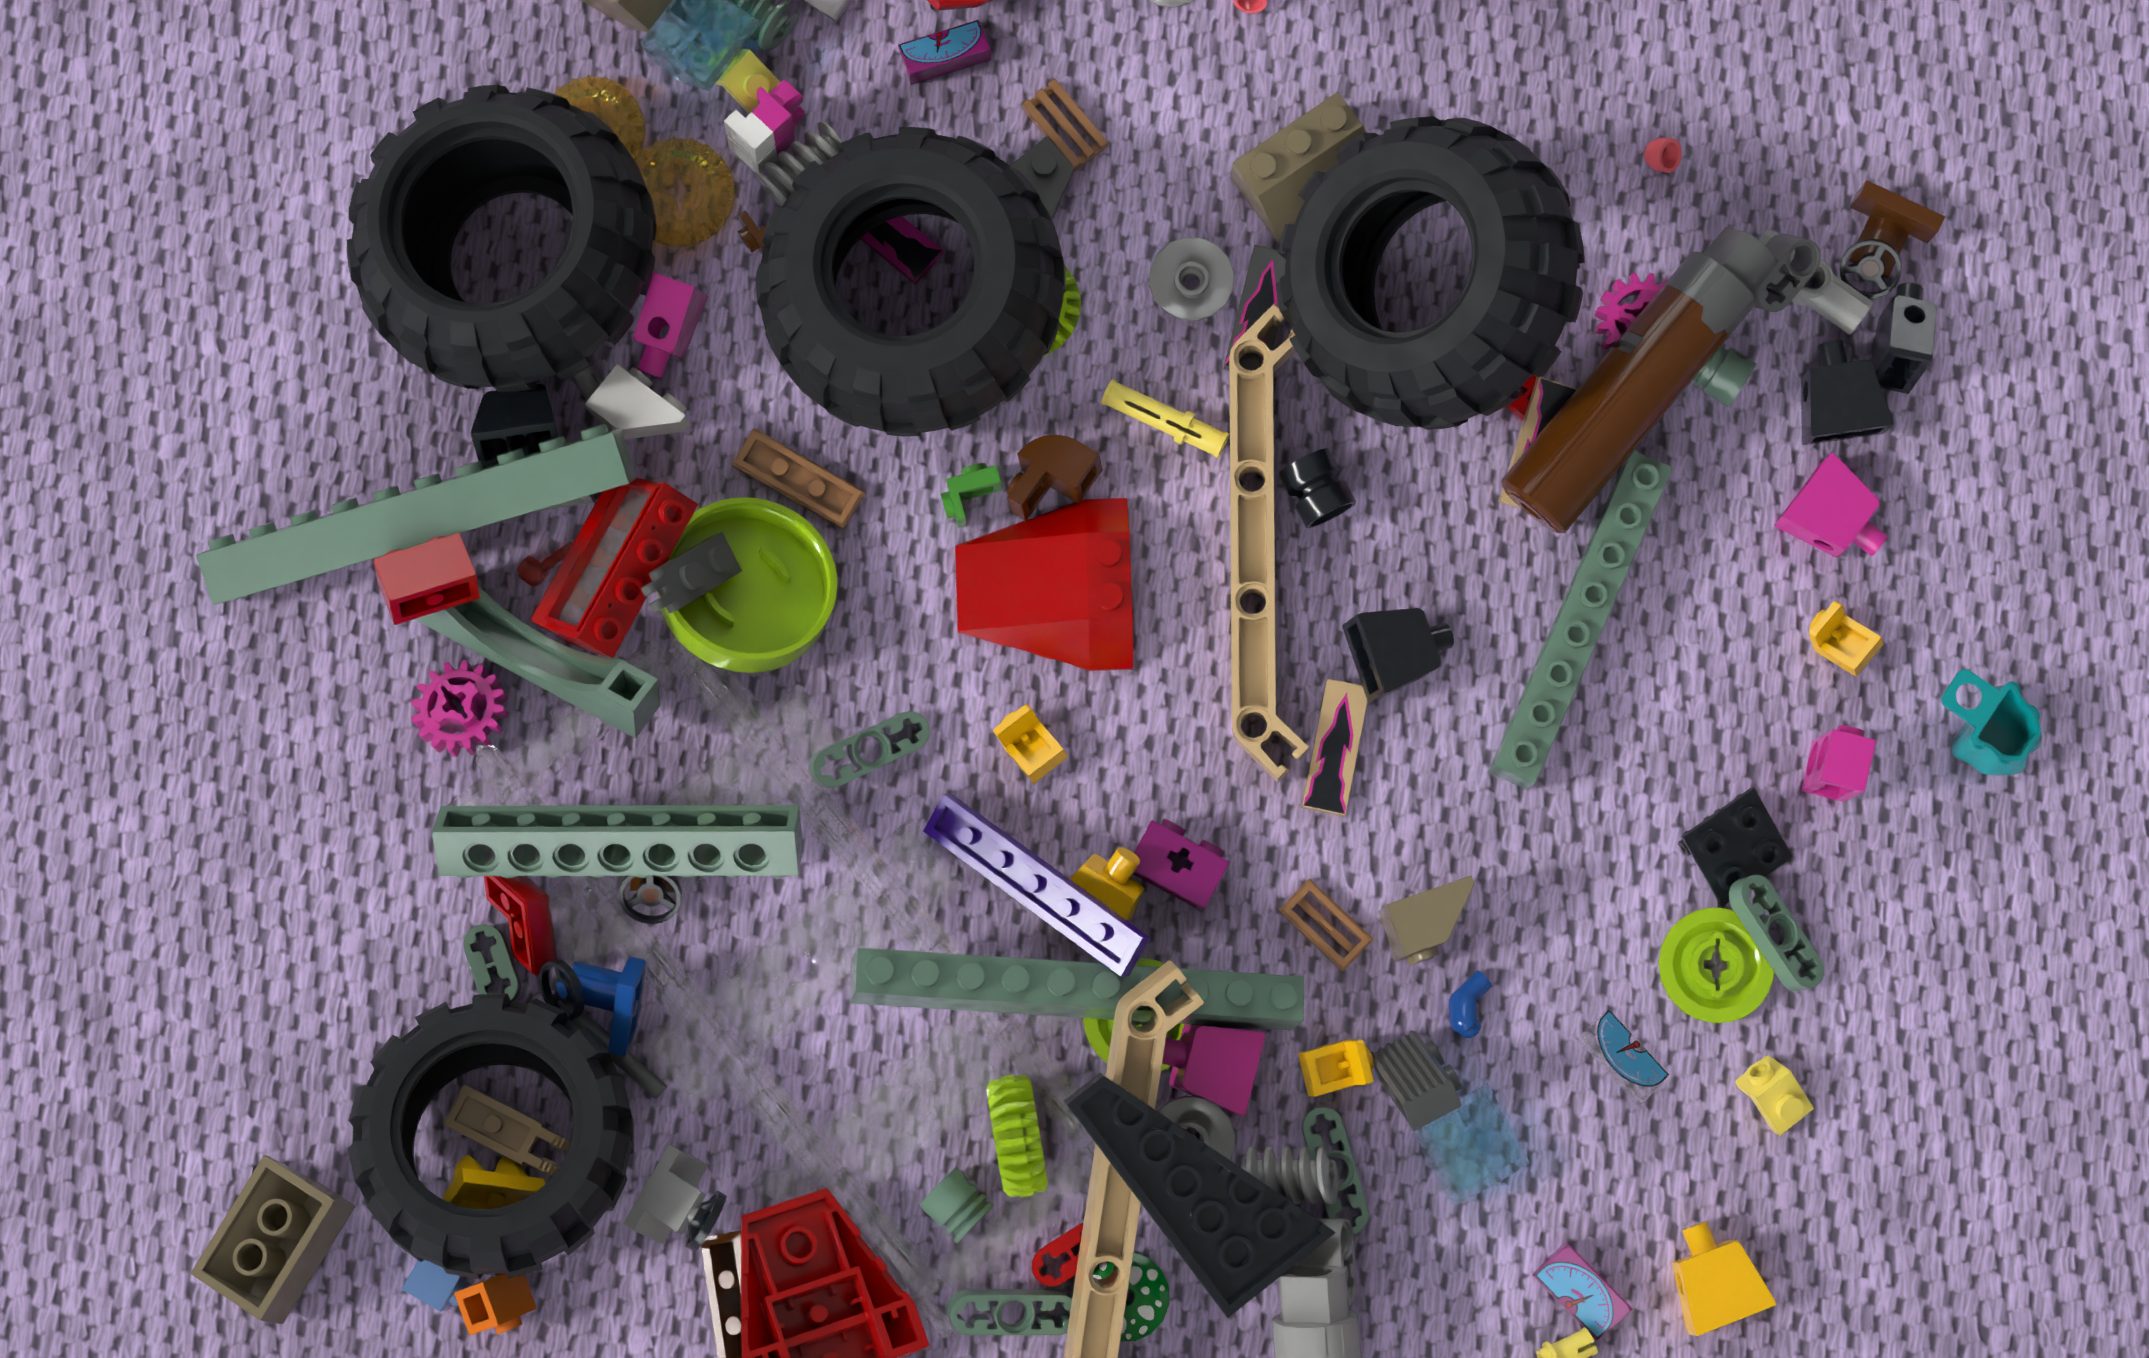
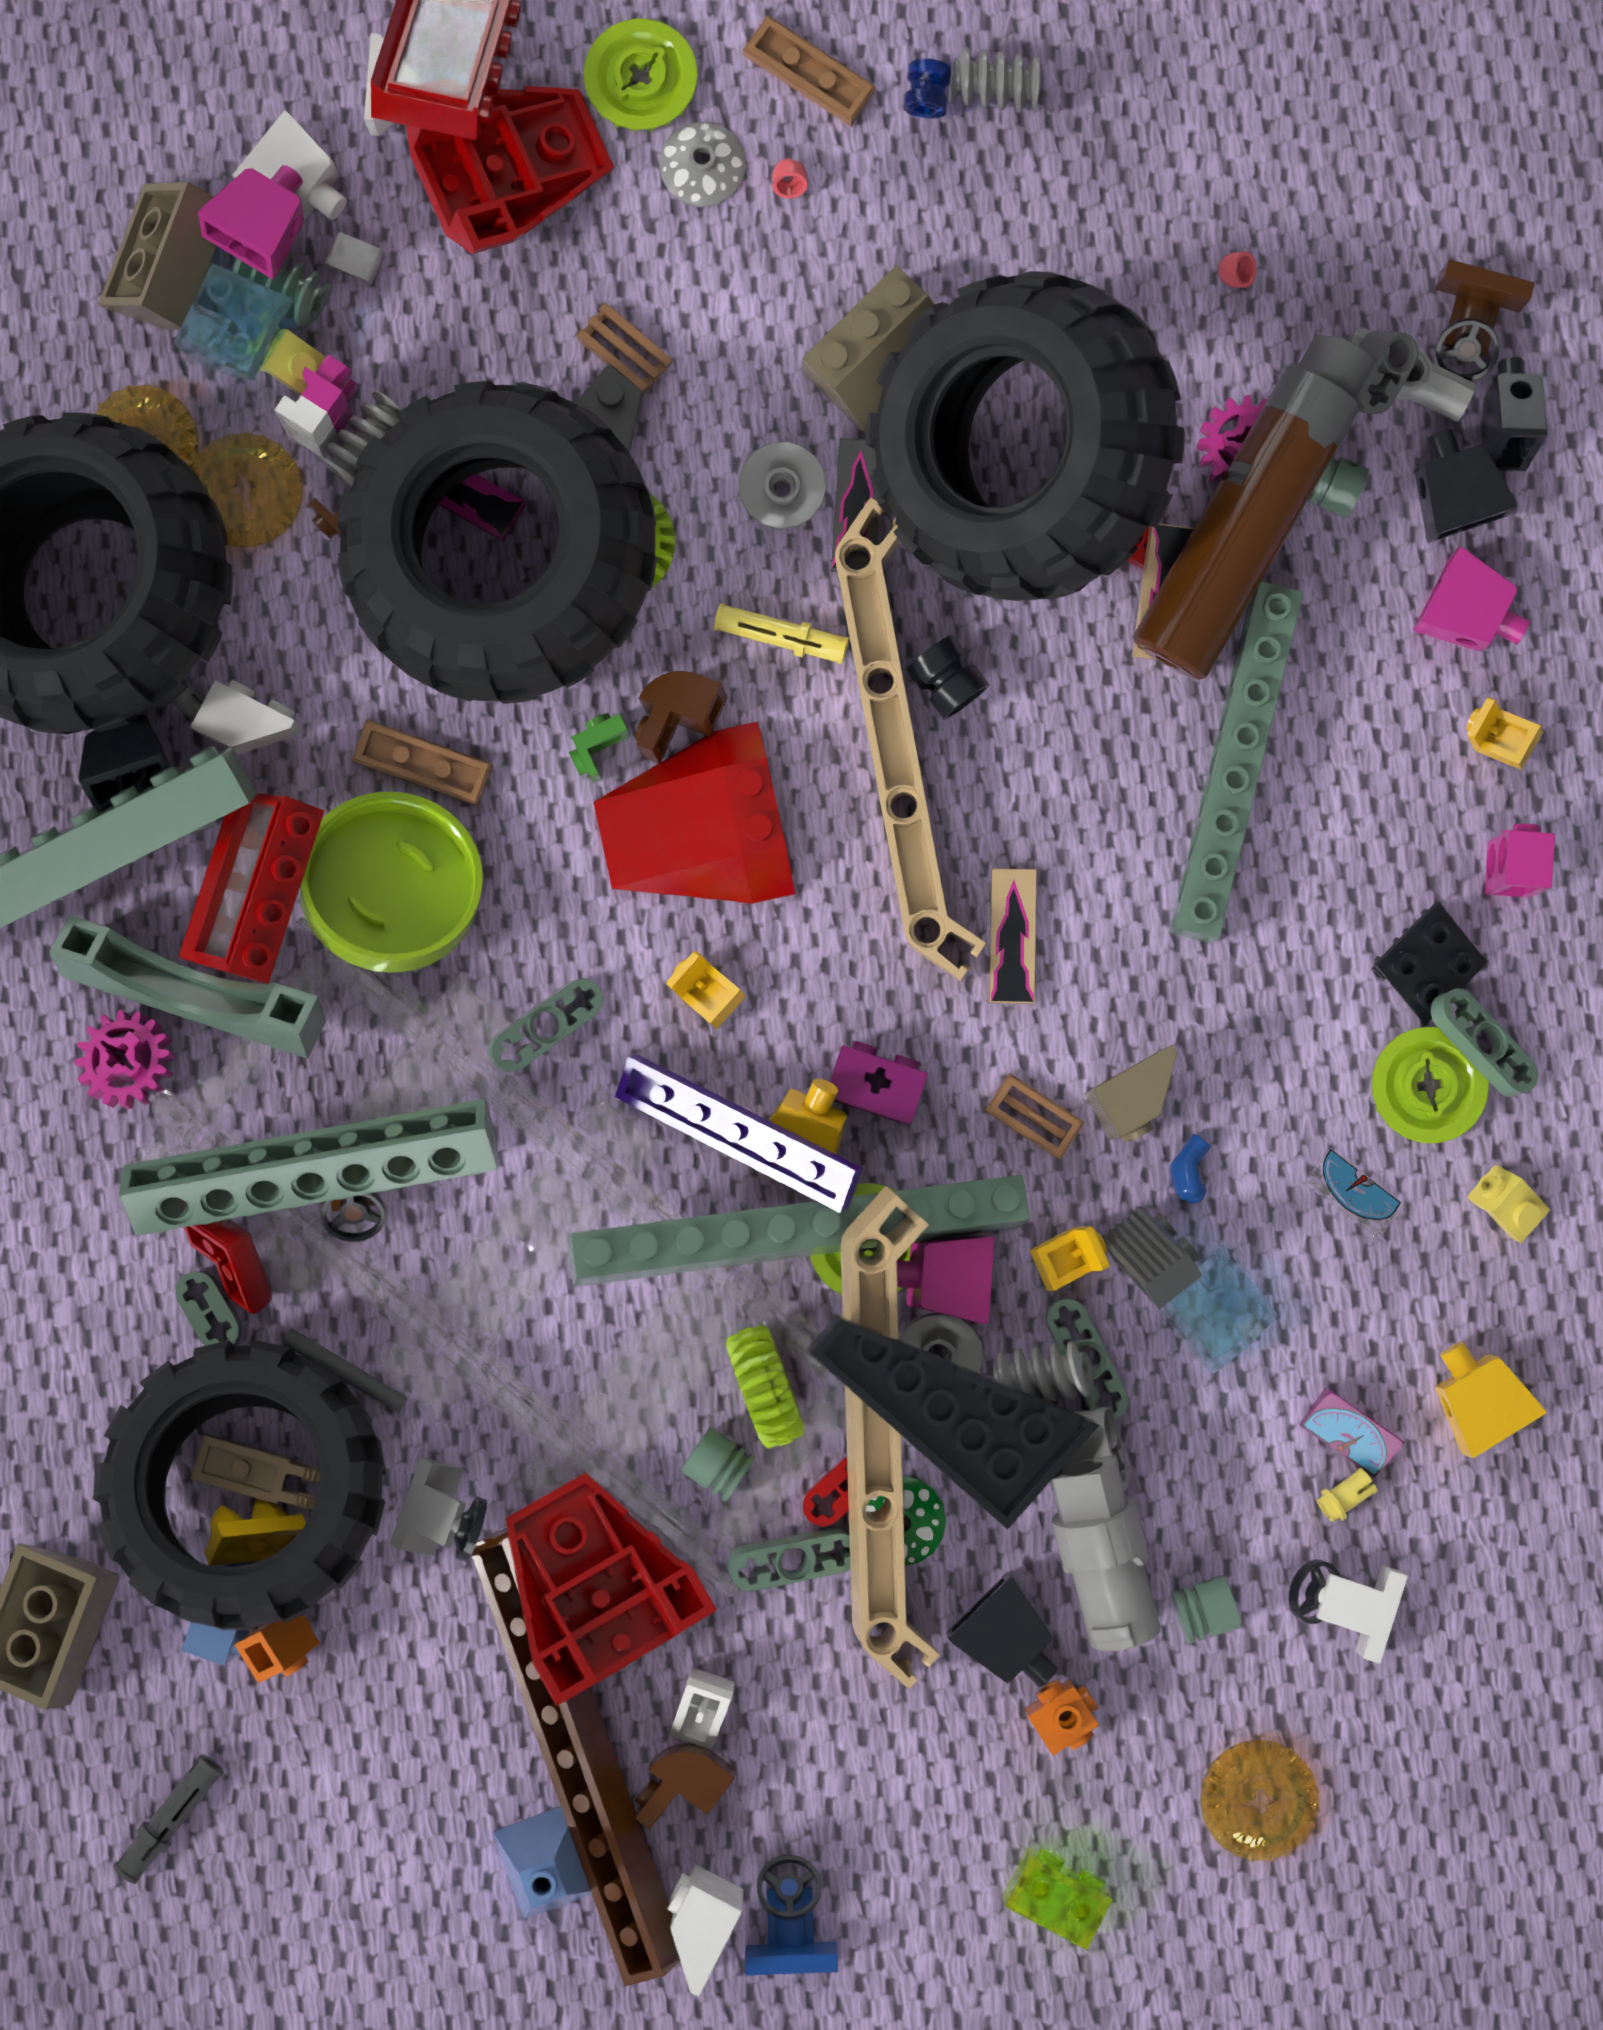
camera: 10 degrees left, 5 degrees up
(426, 578) = (63, 936): brick -> none
(534, 572) = (174, 906): clear red hand -> none
(600, 989) = (321, 1315): blue piece -> none
(665, 304) = (260, 609): dark pink torso -> none
(692, 574) = (331, 883): dark grey hinge -> none
(945, 52) = (488, 295): slope -> none
(1394, 648) = (1054, 826): black torso -> none

